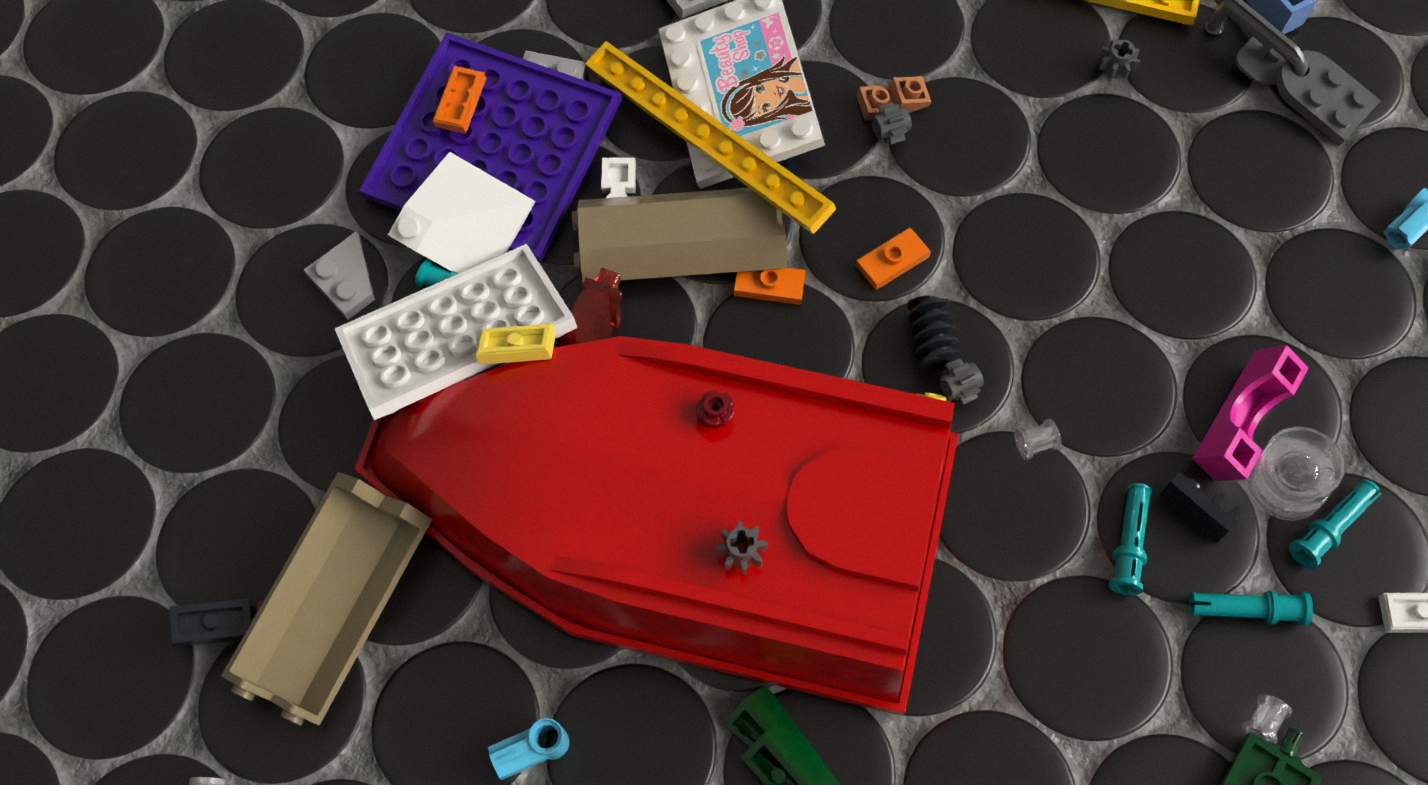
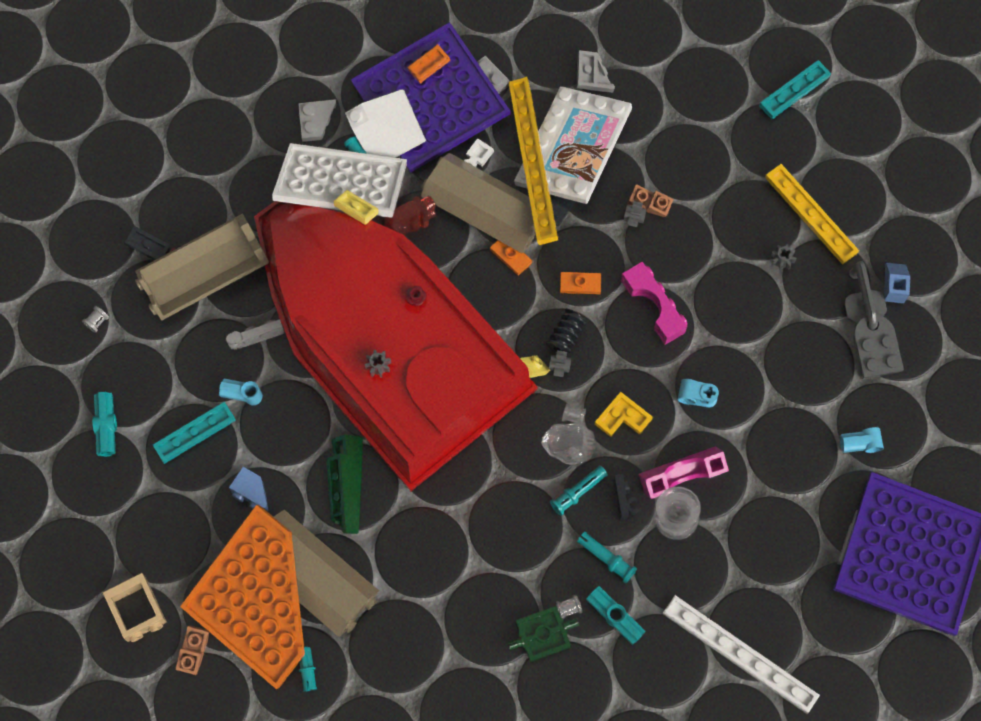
camera: 35 degrees right, 5 degrees up
(485, 644) = (255, 334): none -> light grey hinge
(1049, 228) = (641, 282): none -> dark pink arch
(1067, 481) = (569, 443): none -> clear hair
(1095, 389) = (623, 410): none -> yellow plate
(1170, 297) = (695, 393): none -> medium azure piece
(1327, 532) = (672, 550): teal pin -> none
(1360, 684) = (626, 625): none -> teal piece

